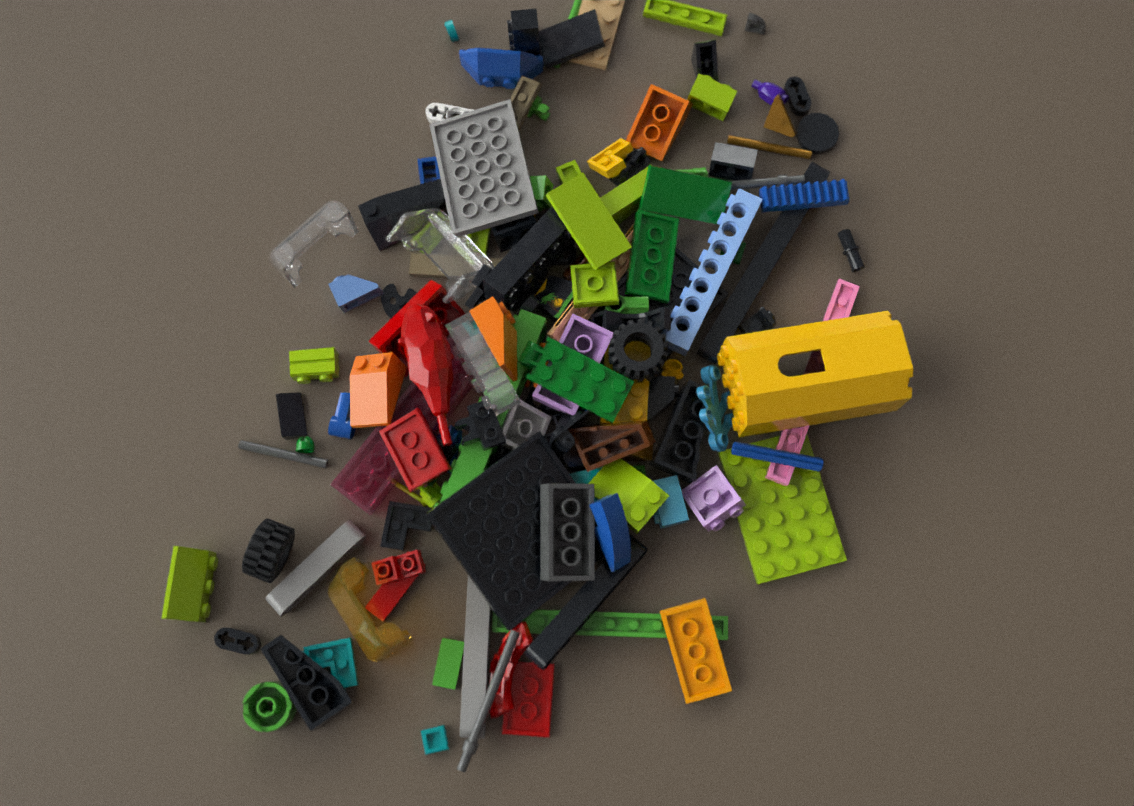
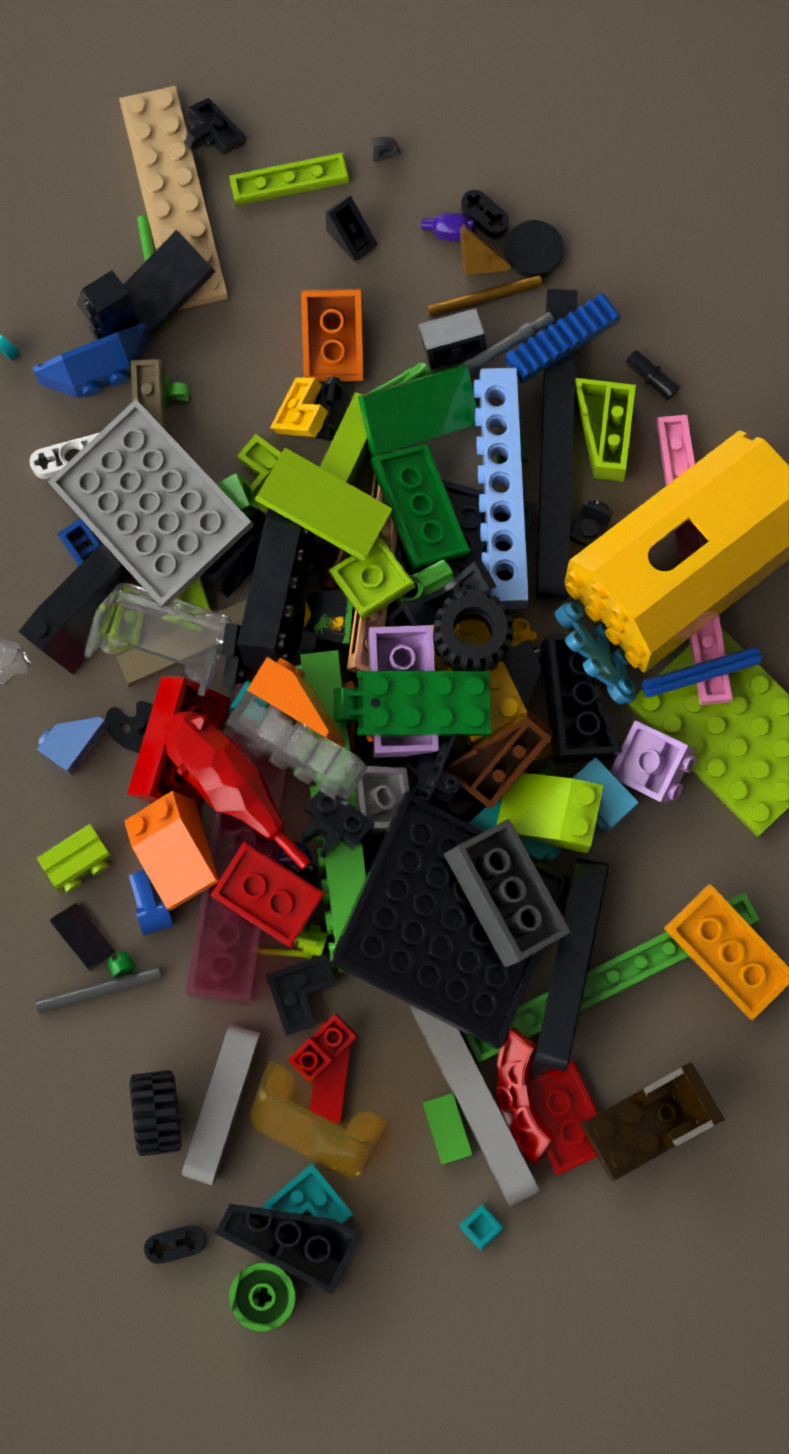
camera: 30 degrees left, 0 degrees up
(189, 584) = (81, 1207): lime slope -> none
(470, 745) = (530, 1206): dark grey bar -> none
(581, 734) = (651, 1121): none -> dark brown bracket
(612, 530) = (559, 862): blue slope -> none
(711, 96) = (381, 268): lime brick -> none
(803, 265) = (606, 425): none -> lime wedge

